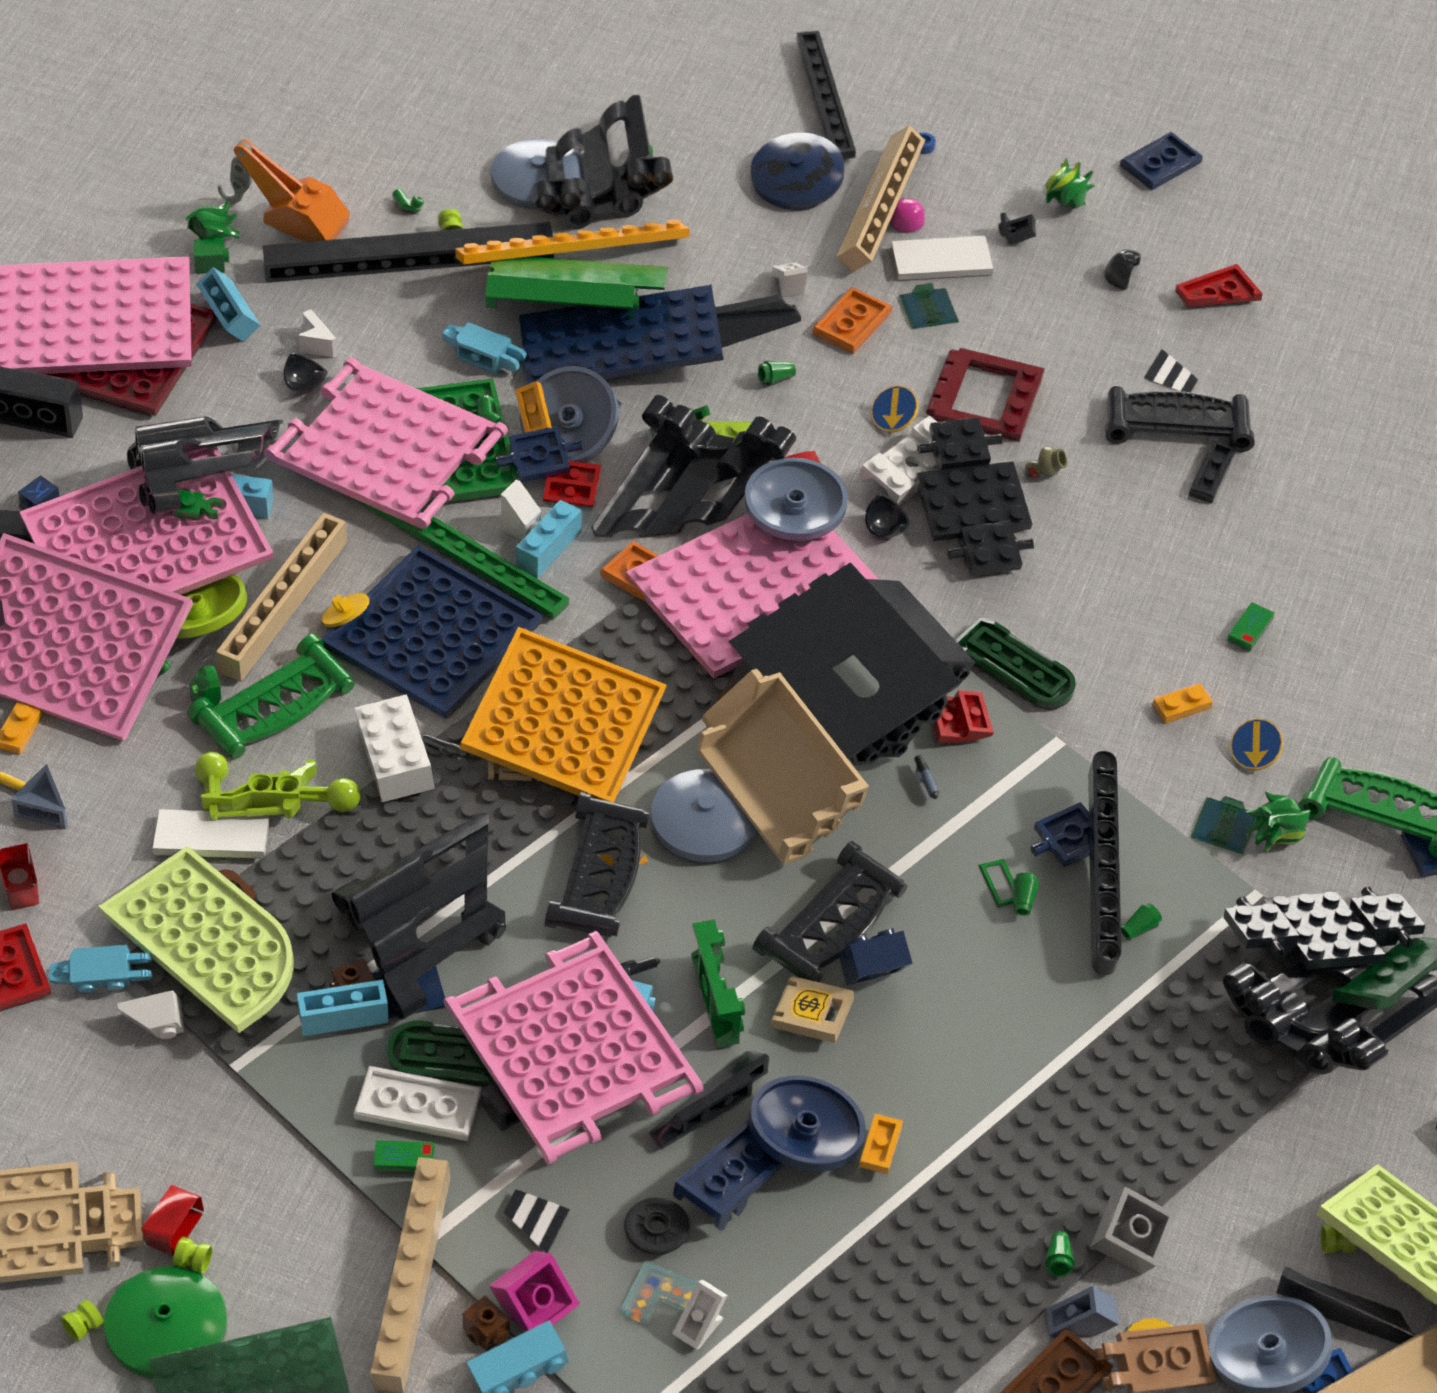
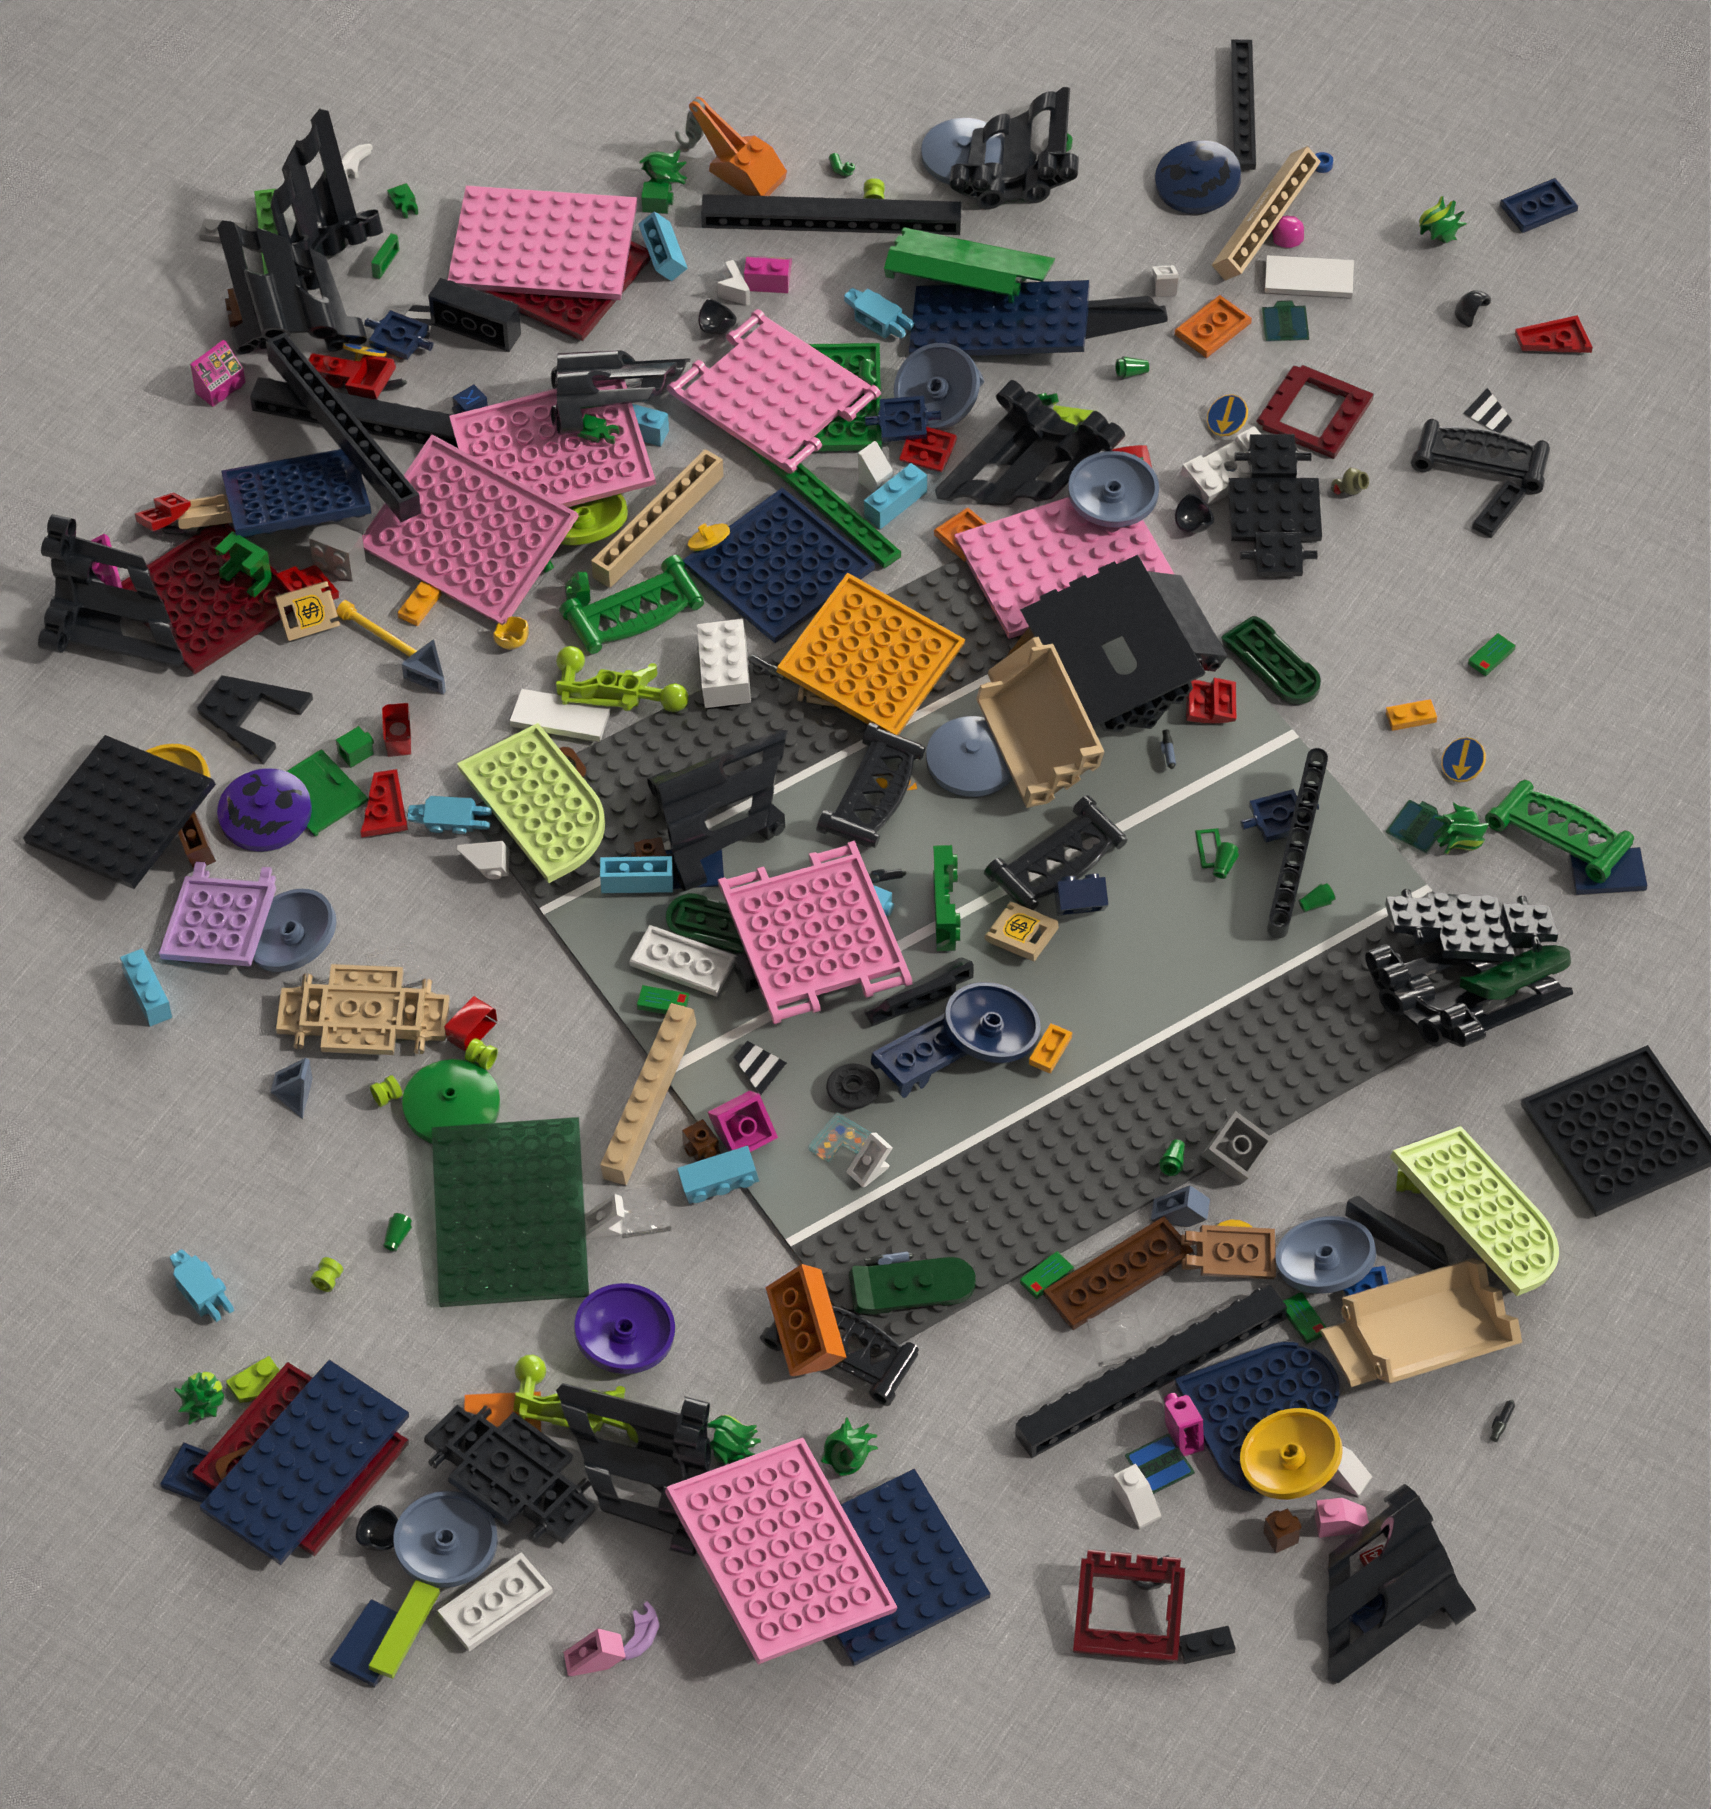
camera: 15 degrees right, 5 degrees up
(136, 747) = (512, 633): none -> yellow hair
(352, 321) = (768, 274): none -> dark pink slope
(533, 407) = (905, 375): light orange plate -> none
(566, 243) = (980, 224): light orange plate -> none
(1017, 229) = (1384, 257): black bracket -> none

